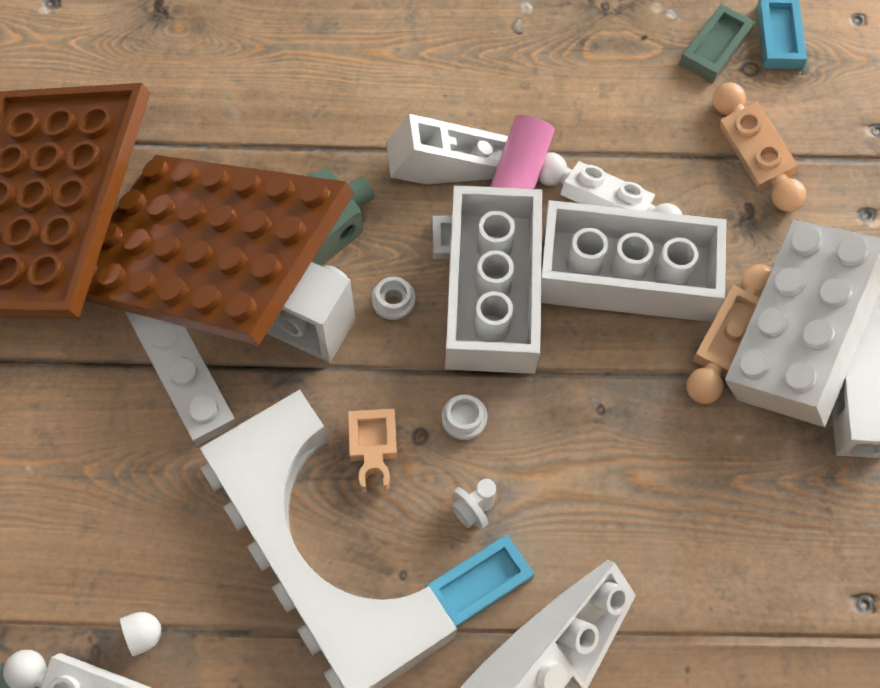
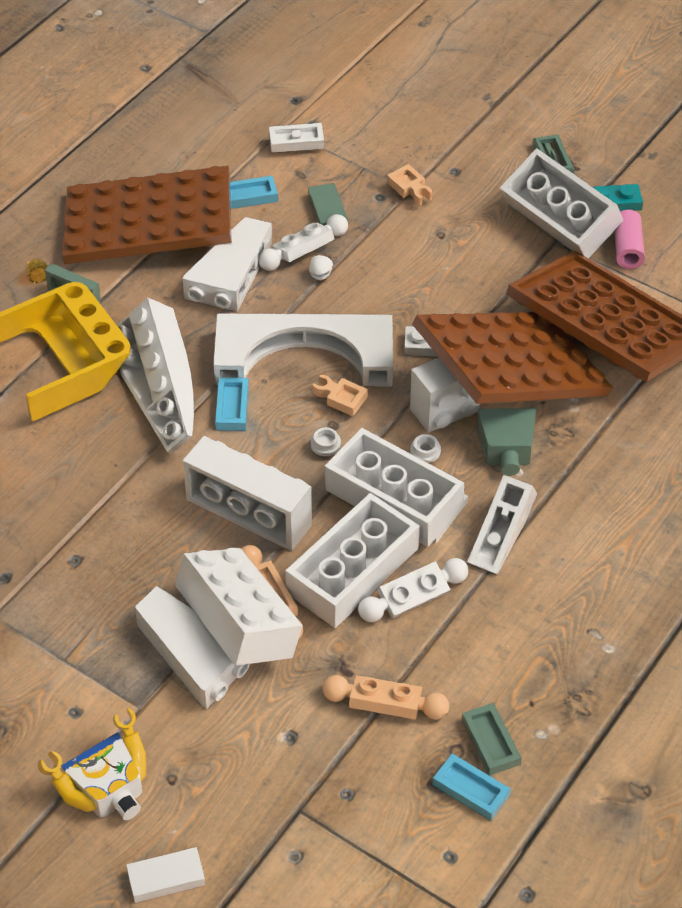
camera: 125 degrees right, 15 degrees down
(471, 507) = (271, 414): white plate -> none
(523, 153) = (466, 545): bright pink brick -> none
(637, 430) = (248, 492): none -> white brick

